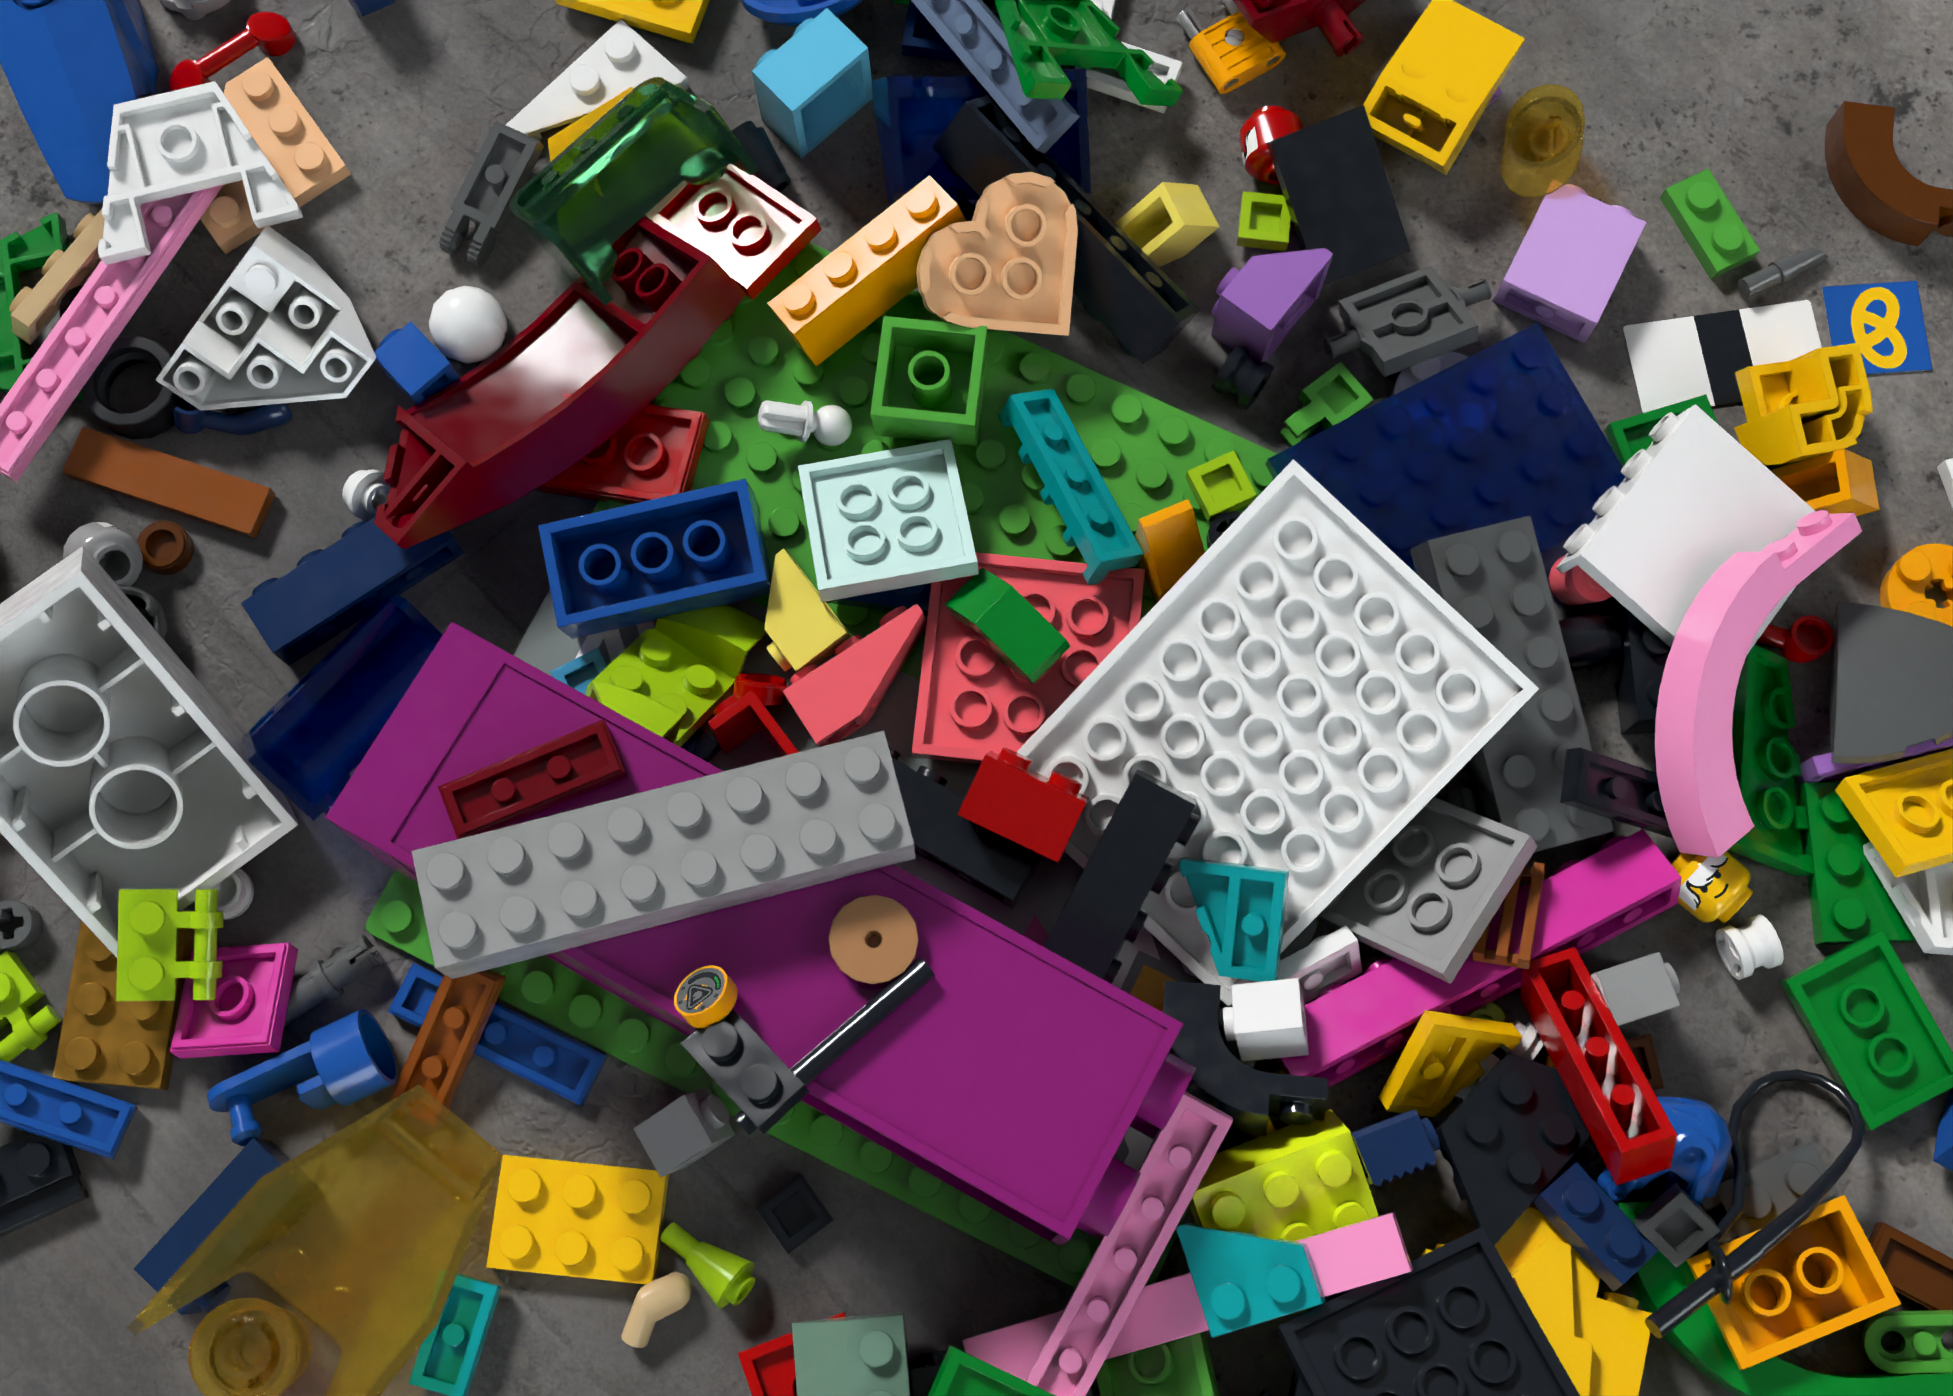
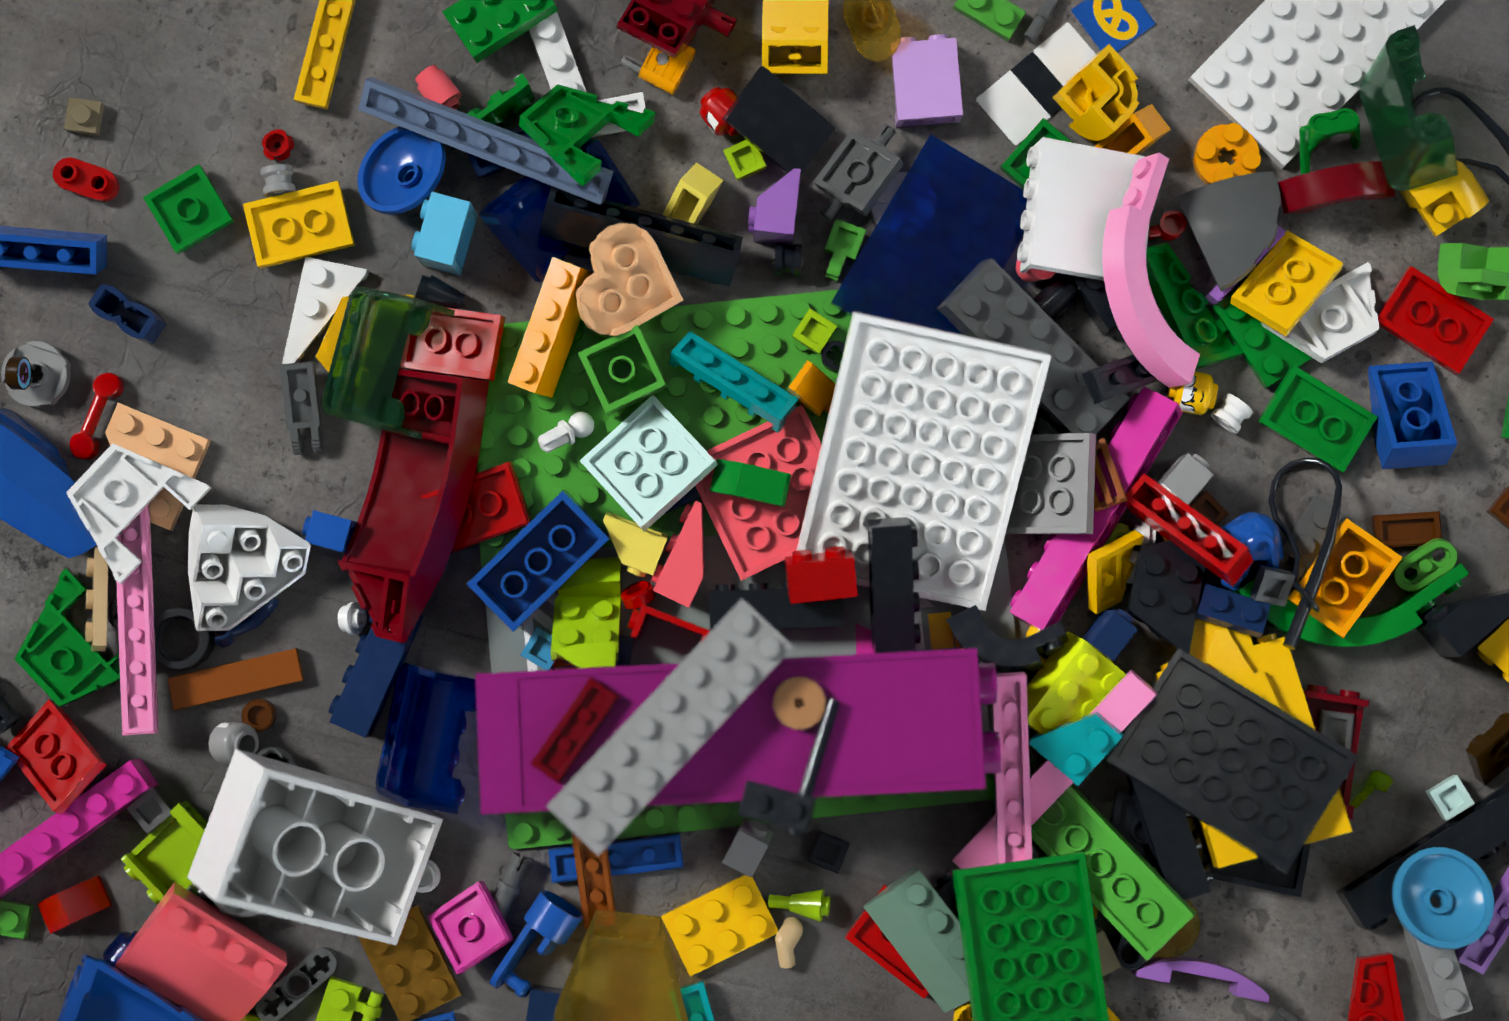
camera: 35 degrees left, 10 degrees up
(150, 939) = (411, 929): lime plate -> none
(467, 324) = (340, 489): white hair -> none
(705, 996) = (735, 783): tile -> none
(1241, 915) = (965, 562): teal wing -> none
(1267, 1020) = (1010, 608): white brick -> none
(1323, 963) = (1015, 568): white plate -> none

